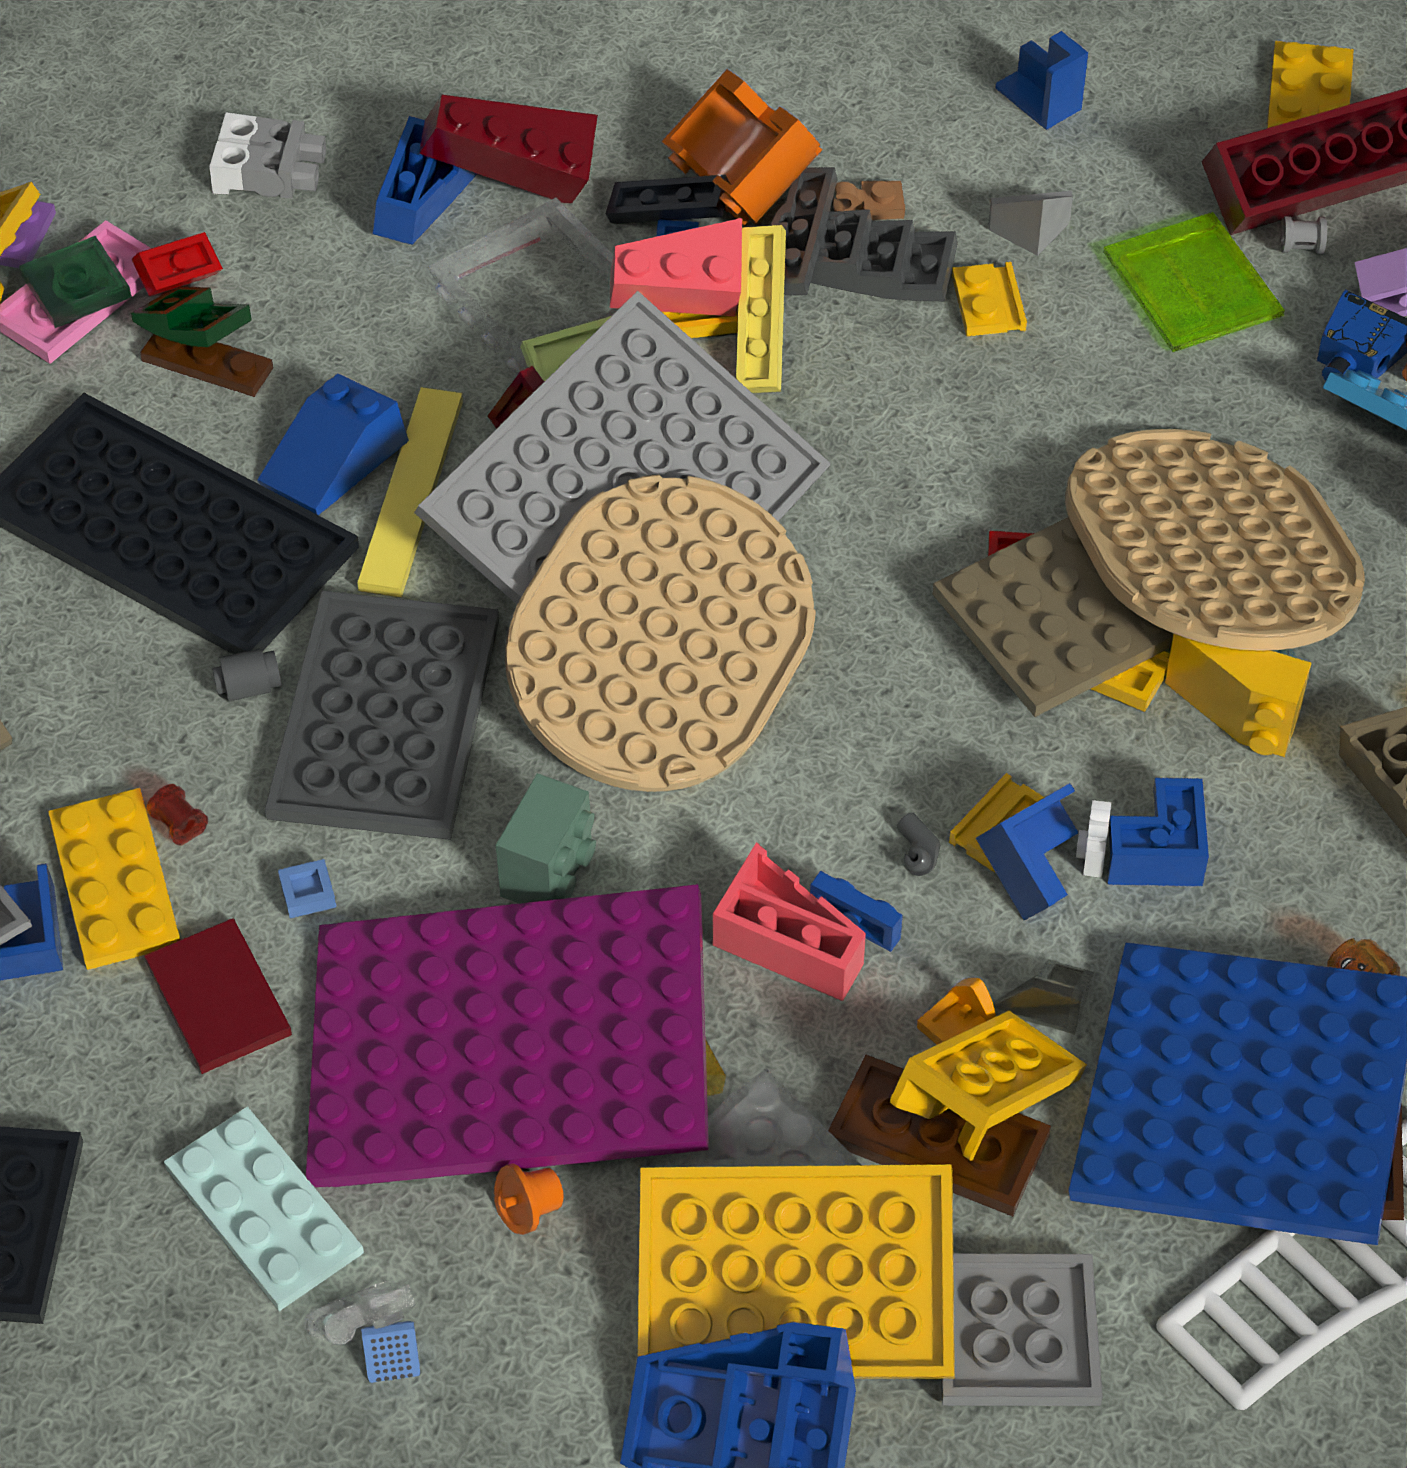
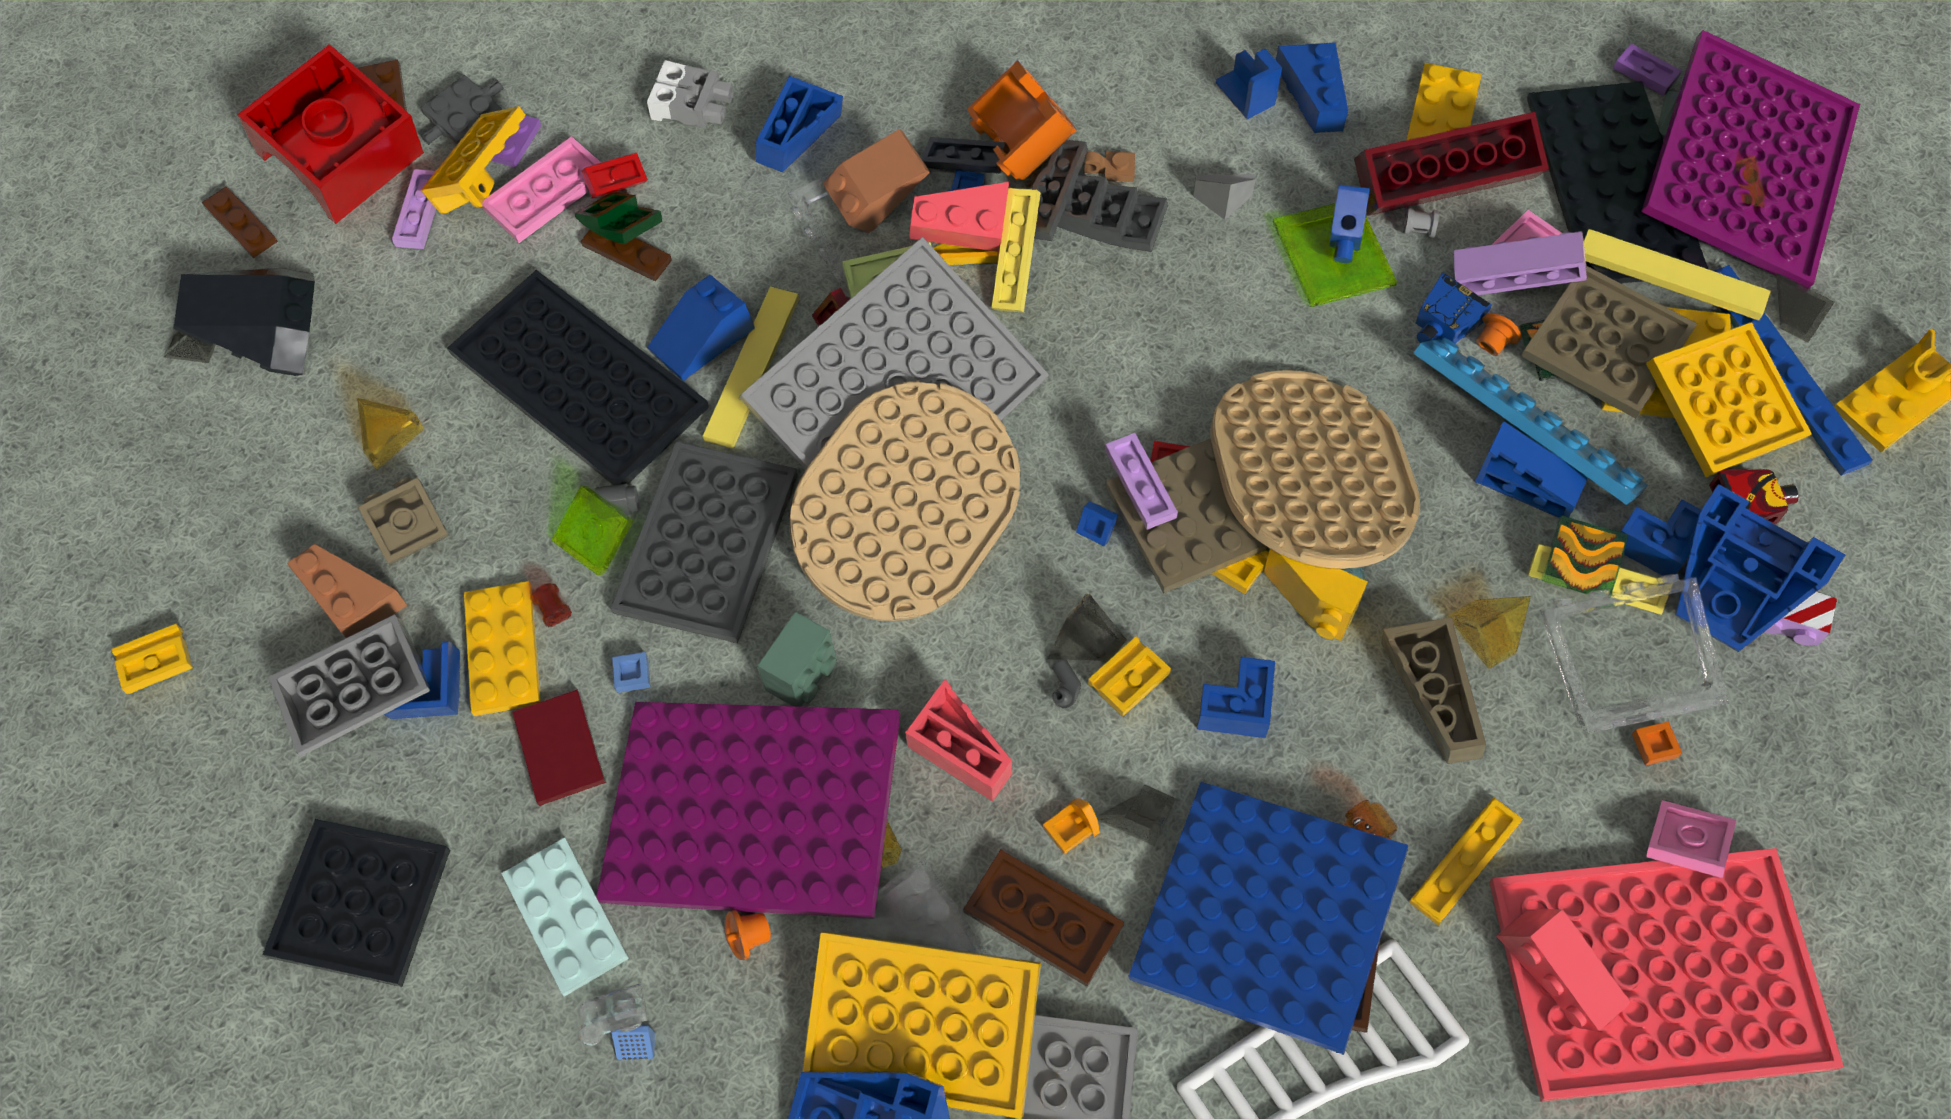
camera: 10 degrees right, 10 degrees up
(75, 281) = (542, 183): clear green tile -> none
(222, 712) = (592, 530): none -> clear neon green tile
(513, 143) = (858, 102): dark red wedge -> none
(552, 238) = (876, 181): none -> nougat slope
(874, 917) = (1002, 725): blue plate -> none
(928, 640) = (1096, 523): none -> blue tile
(938, 777) = (1087, 634): none -> clear smoke slope
(983, 573) = (1141, 481): none -> lavender plate
(986, 1076) = (1083, 883): yellow plate -> none
(988, 299) = (1183, 252): yellow plate -> none
(1018, 851) = (1134, 699): blue panel -> none
(1093, 842) = (1190, 698): white plate -> none
(1134, 76) = (1316, 83): none -> blue wedge
(1208, 236) = (1348, 221): none -> torso

